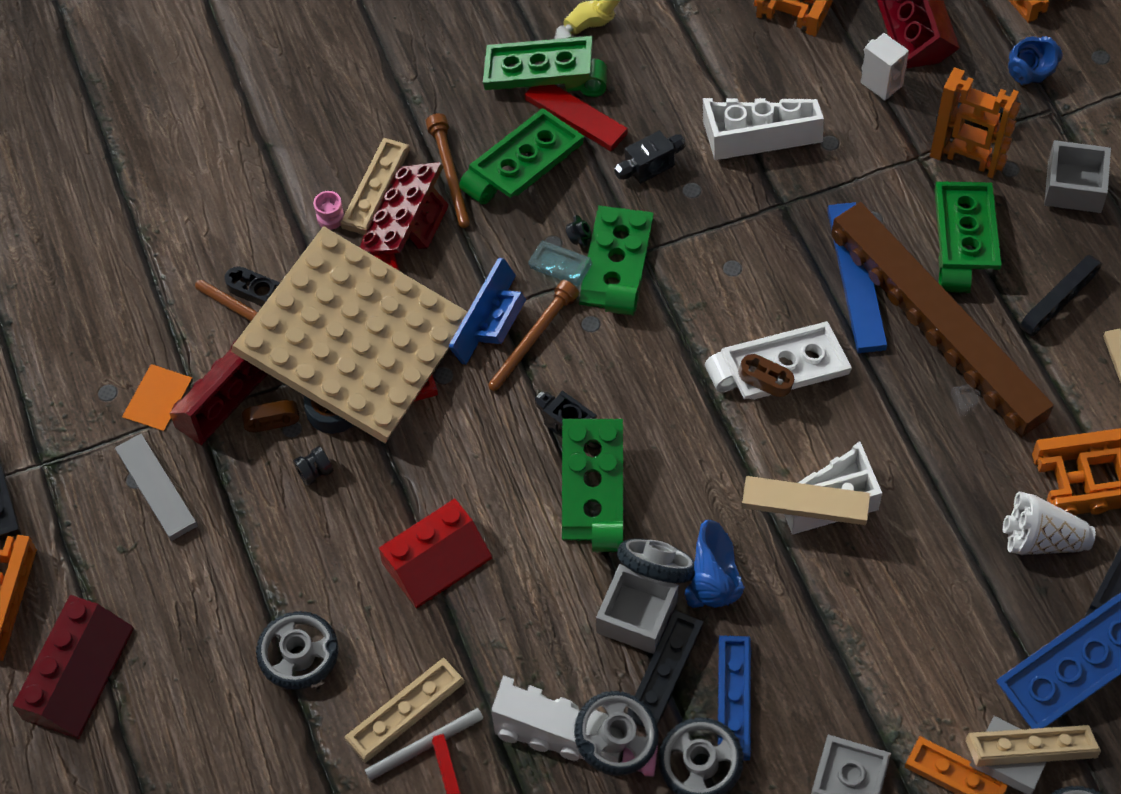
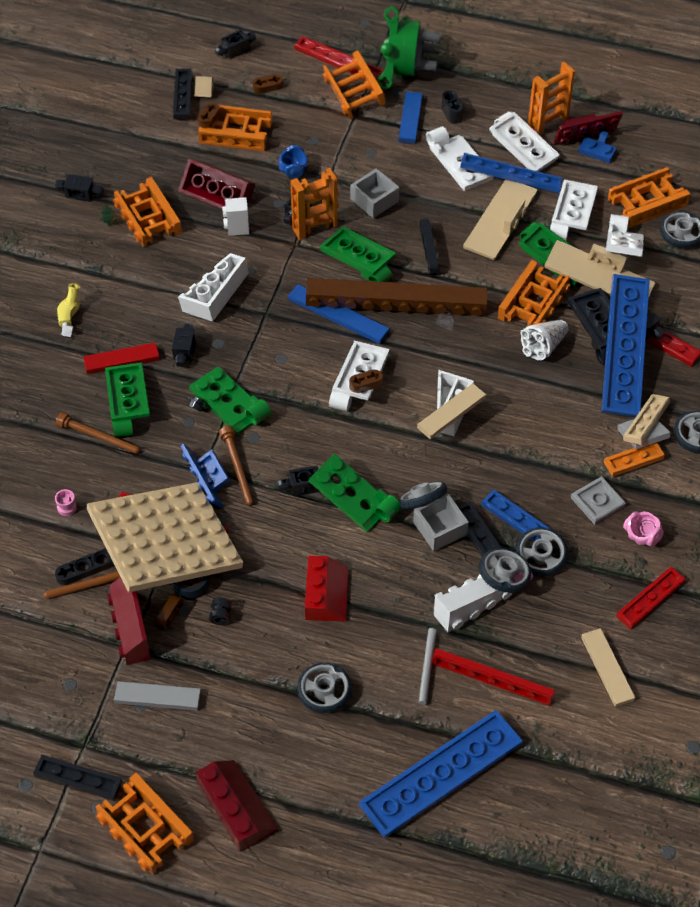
camera: 55 degrees left, 5 degrees down
(156, 397) = (98, 662): orange sticker -> none
(374, 186) = (70, 473): tan tile -> none
(404, 710) = (400, 663): tan tile -> none
(408, 210) = (103, 467): dark red bracket -> none
(560, 263) = (208, 423): clear light blue plate -> none
(577, 74) = (102, 338): green hinge -> none
(715, 573) = (456, 480): blue hair -> none

